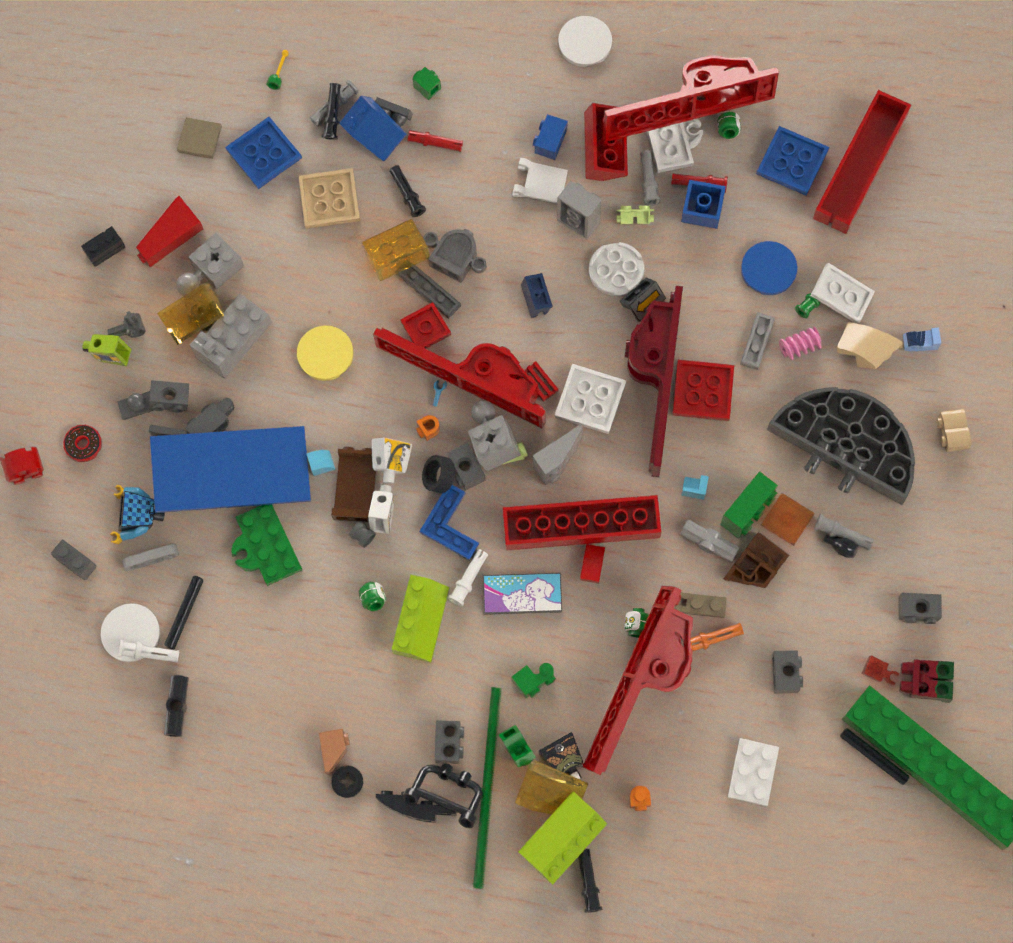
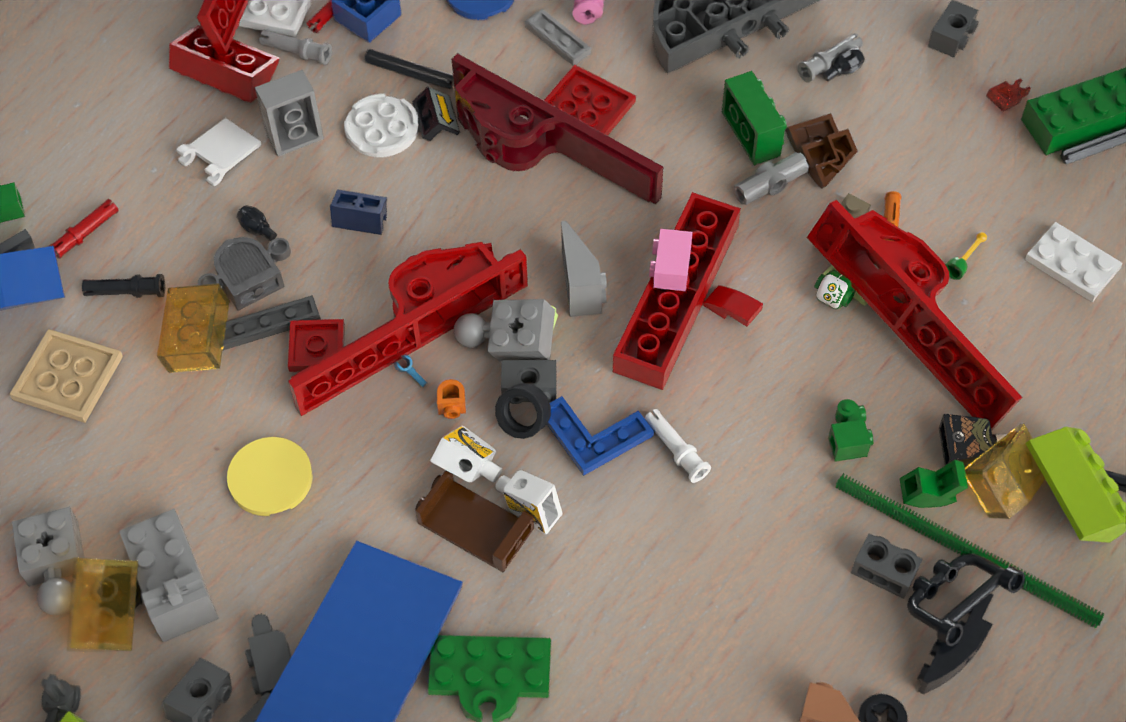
camera: 65 degrees left, 15 degrees down
(320, 462) = (416, 548): medium azure brick -> none
(362, 534) = (547, 540): dark grey wheel -> none
(372, 596) = (640, 566): green head -> none
(420, 618) = (699, 526): lime slope -> none
(494, 238) = (255, 222): none -> black piece
(522, 593) = (729, 397): tile -> none
(550, 136) = (173, 112): blue brick -> none
(585, 41) = (83, 33): white tile -> none
(589, 508) = (672, 259): none -> bright pink brick
(590, 398) = (524, 216): white plate -> none
(640, 798) = (1057, 386): orange plate -> none
(642, 214) = (335, 70): yellowish green hinge -> none
(672, 257) = (409, 68): none -> black axle
(695, 487) = (699, 164): medium azure panel -> none
(704, 695) = (958, 266): none -> green hinge
(784, 683) = (968, 175): dark grey brick -> none
(787, 519) = (791, 97): clear orange plate -> none
(928, 680) = (1041, 57): dark red hips -> none

